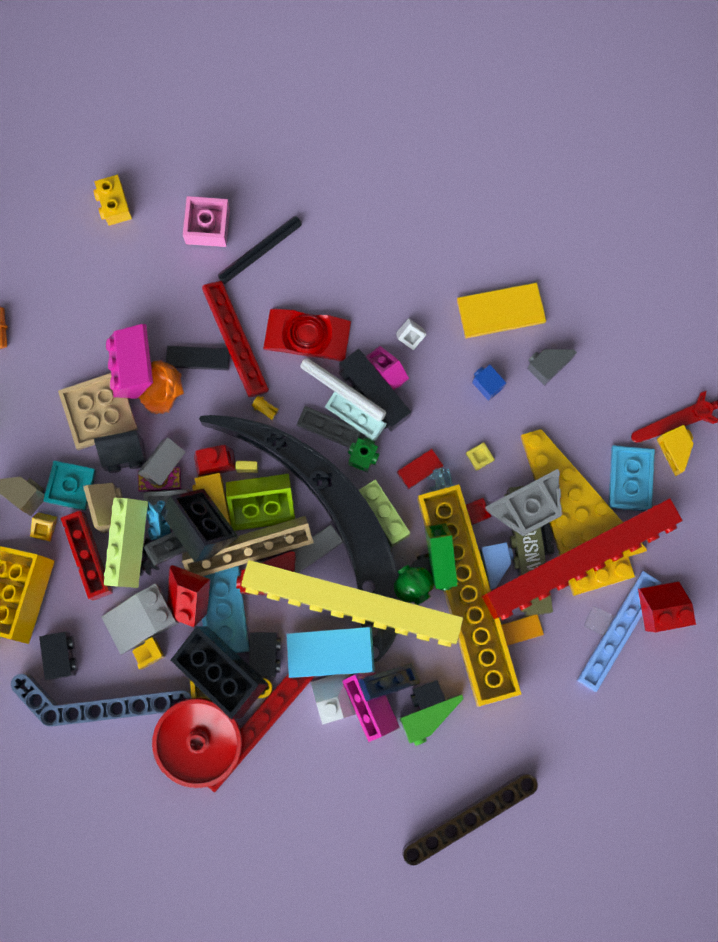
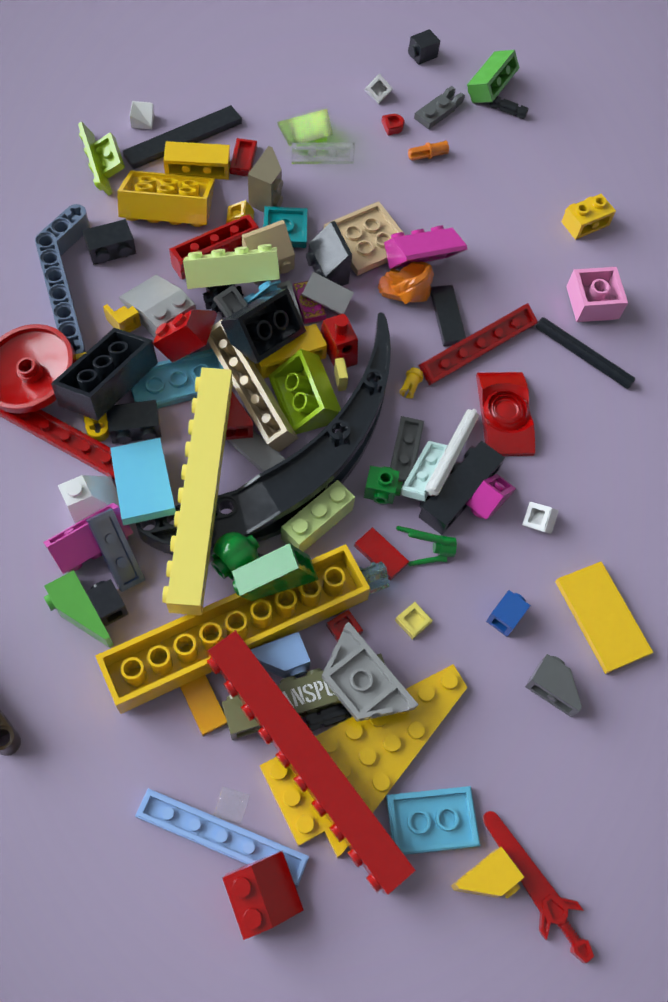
camera: 75 degrees right, 15 degrees down
(424, 418) = (442, 545): none -> green plant

